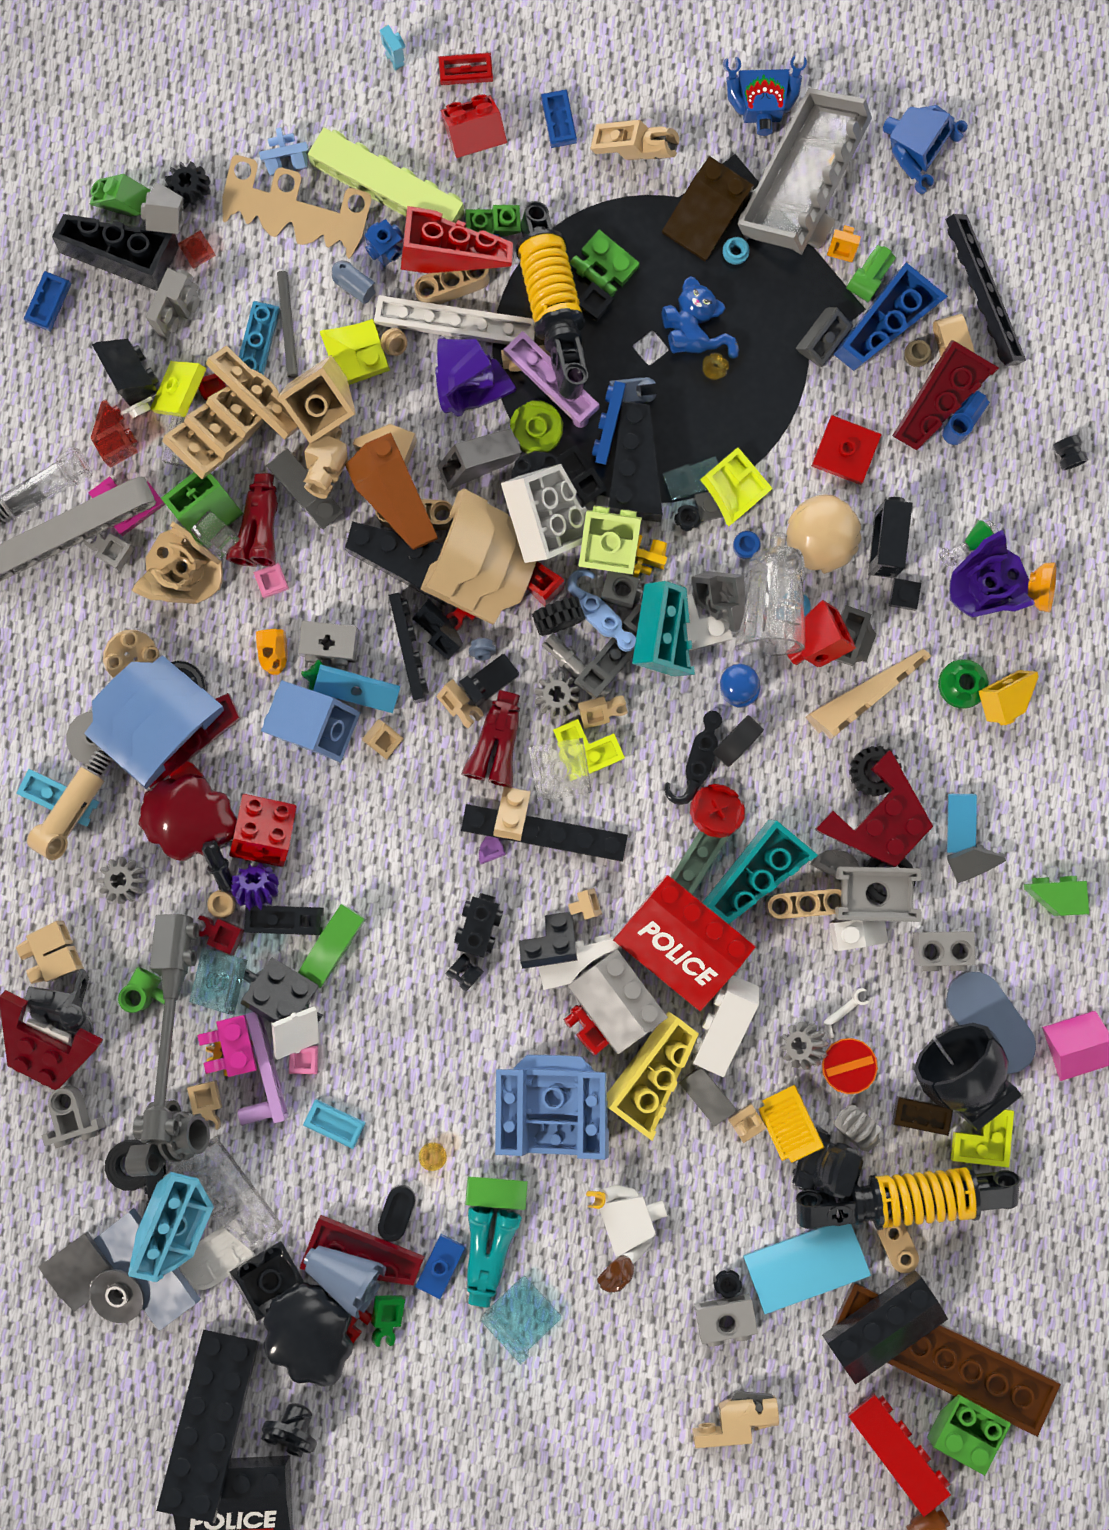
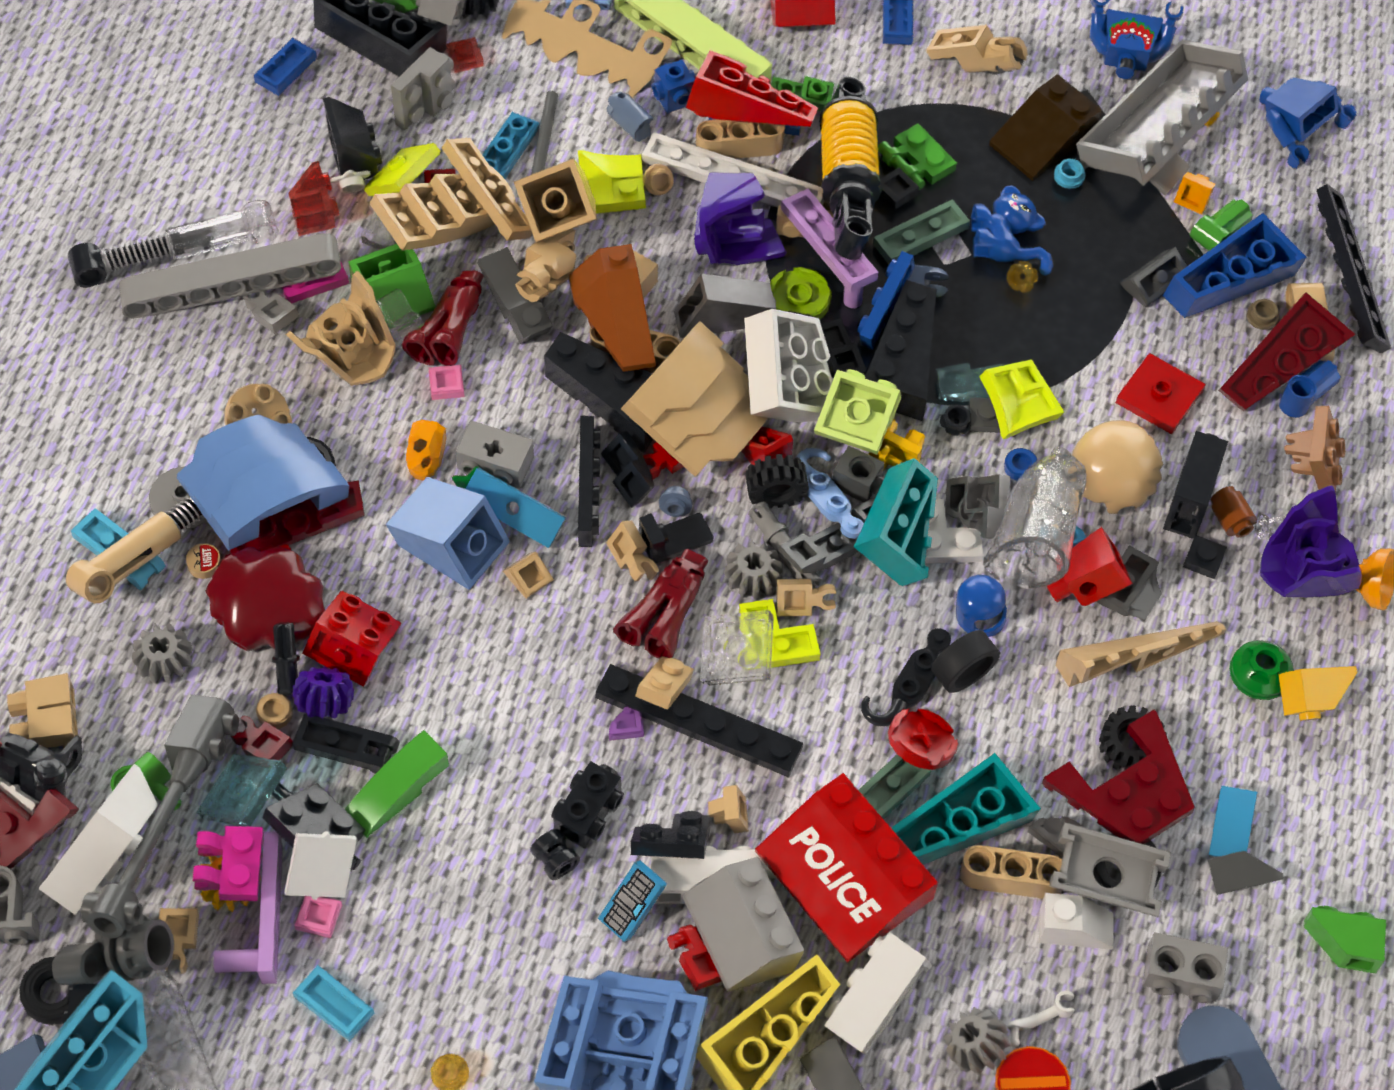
camera: 10 degrees right, 25 degrees down
(127, 790) = (203, 560): none -> tile
(129, 1056) = (102, 842): none -> white wedge
(531, 999) = (632, 901): none -> tile
(624, 340) = (922, 231): none -> sand green plate
(922, 551) = (1233, 512): none -> dark orange brick
(983, 482) = (1318, 449): none -> medium nougat plate

